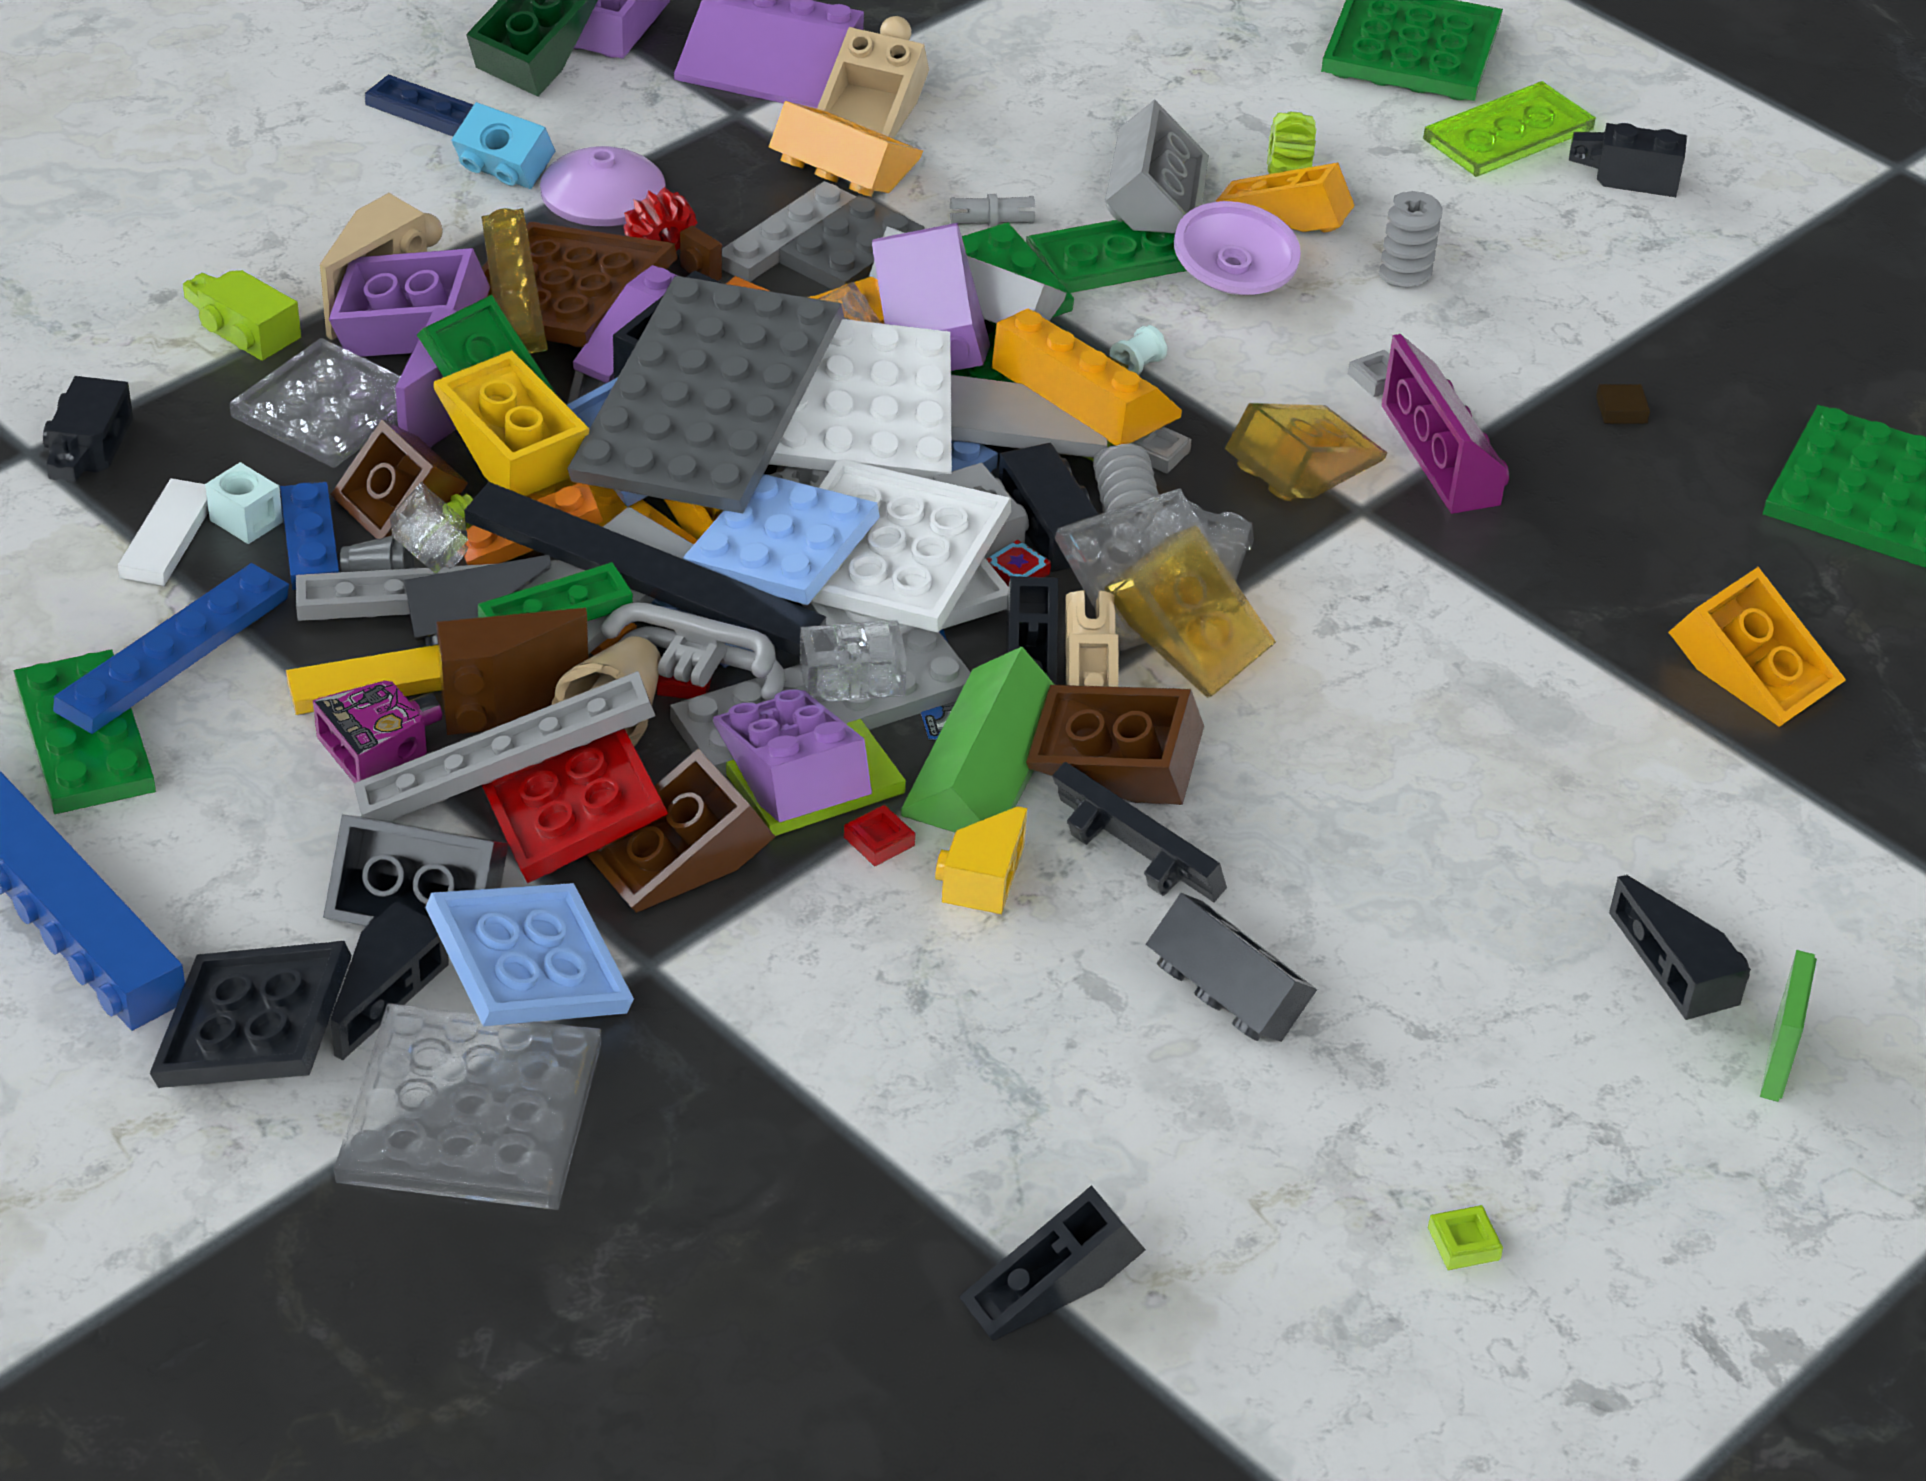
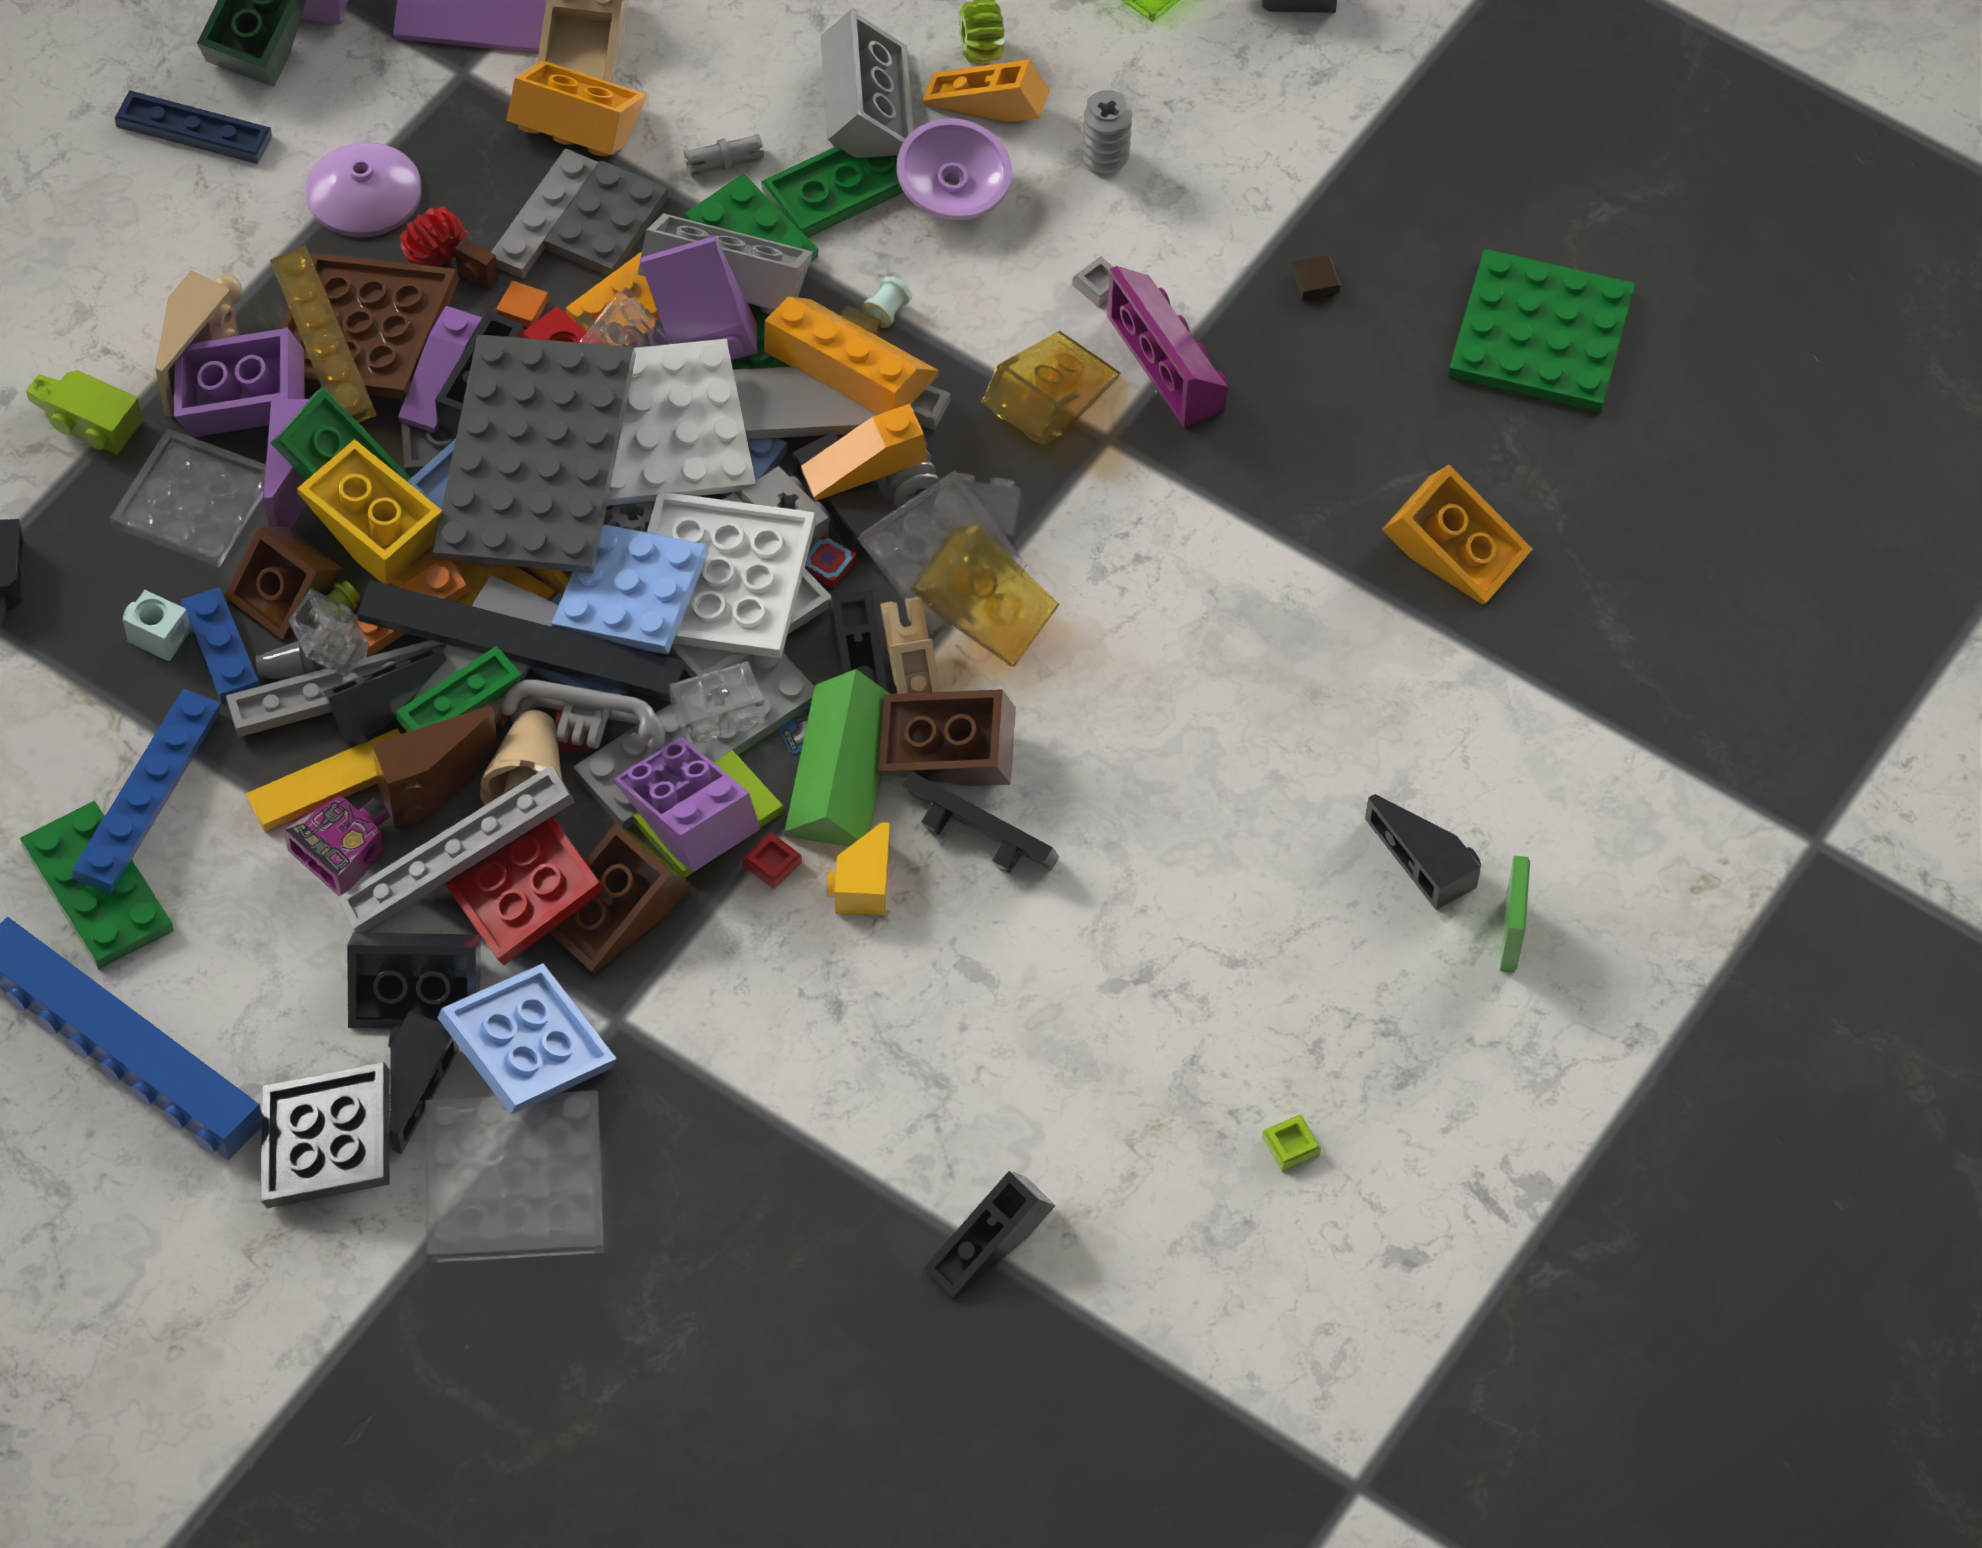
camera: 10 degrees left, 15 degrees up
(165, 533) = (98, 665): white tile -> none
(503, 146) = (247, 153): medium azure brick -> none
(1091, 454) = (867, 453): none -> light orange slope
(1229, 969) = (1076, 942): brick -> none

